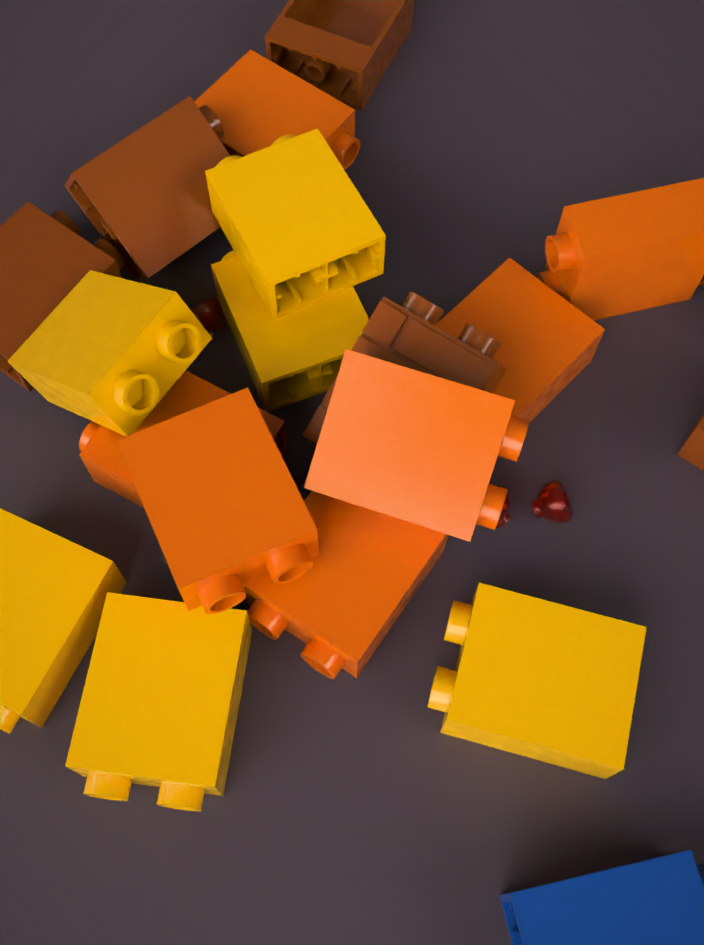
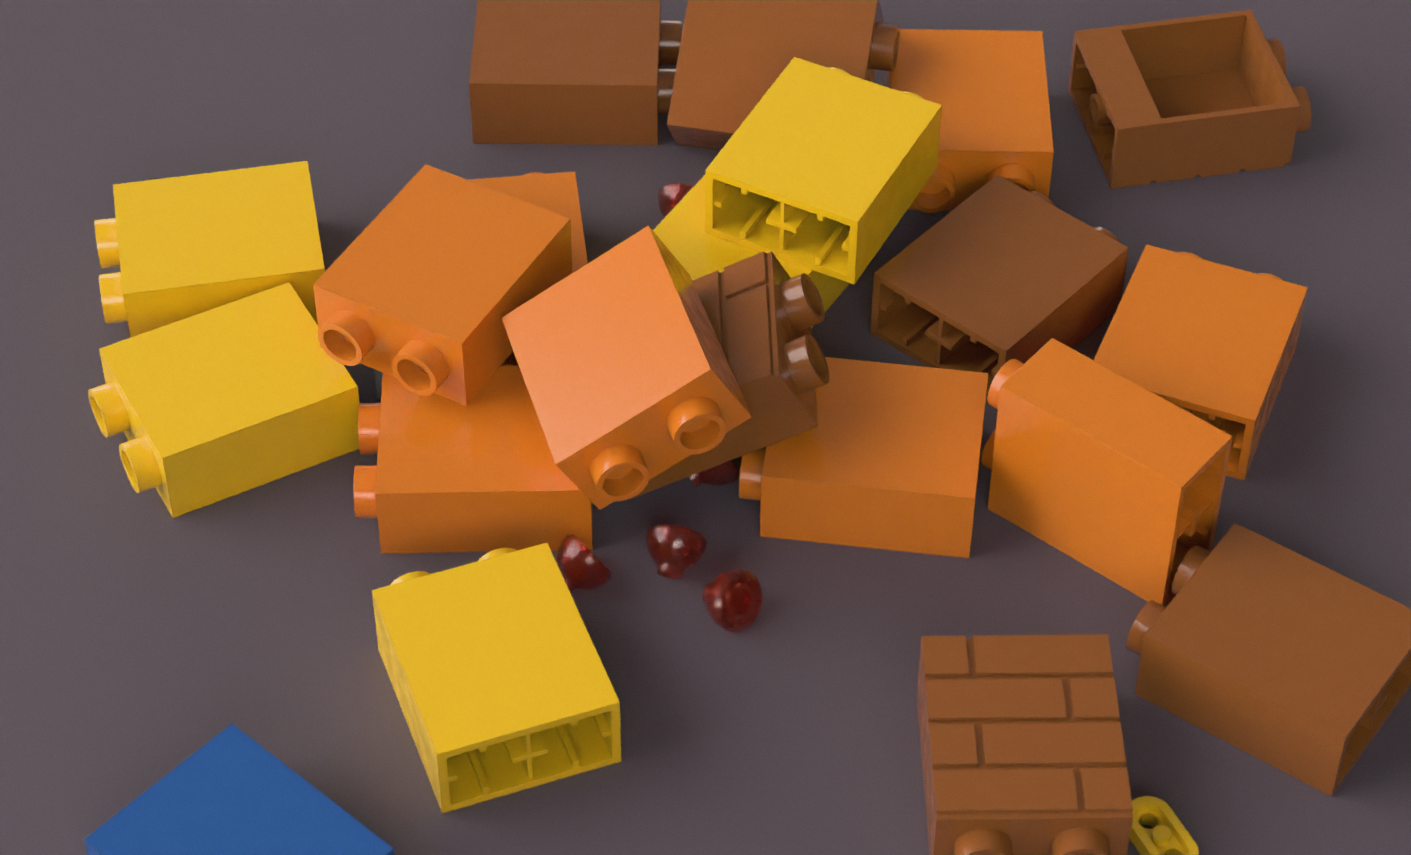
camera: 55 degrees right, 20 degrees down
(111, 350) = (539, 130): yellow brick -> none
(427, 206) = (997, 282): none -> dark orange brick
(467, 569) = (580, 566): none -> clear red brick
(543, 155) = (1207, 341): none -> orange brick

